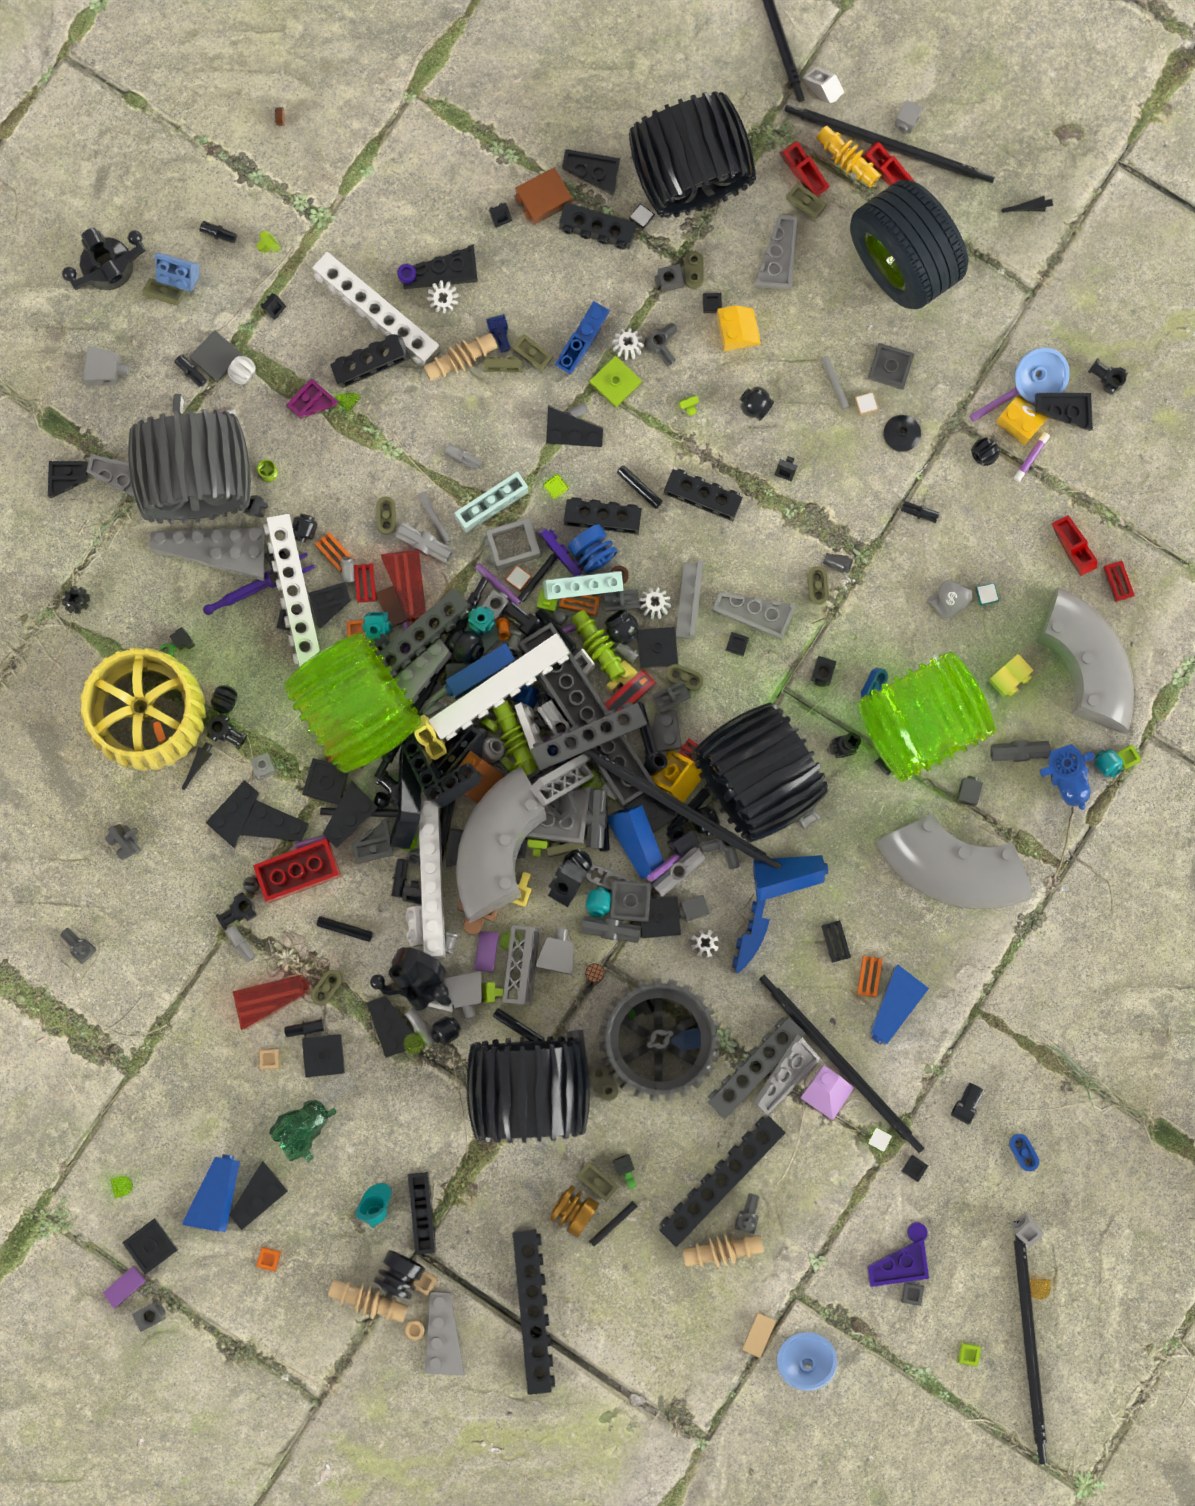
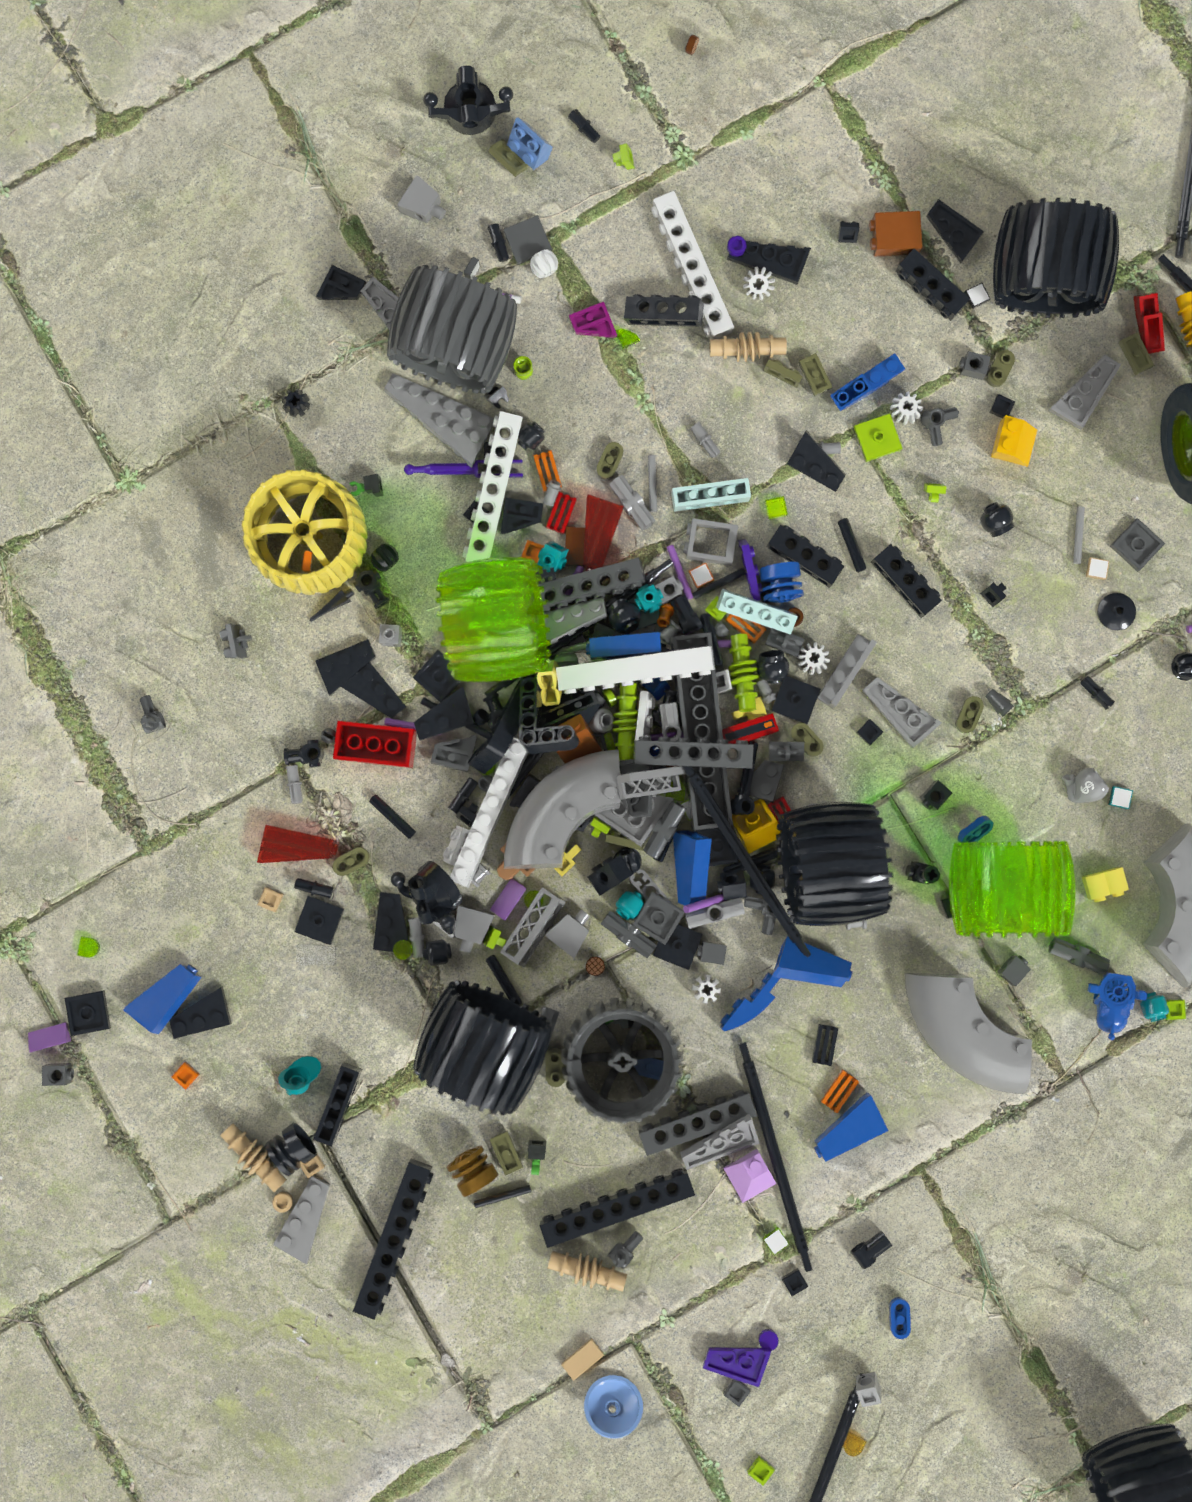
camera: 30 degrees right, 5 degrees up
(273, 306) = (601, 218): black tile -> none
(300, 1128) = (267, 977): clear green helmet -> none
(498, 328) = (795, 336): clear blue pin -> none

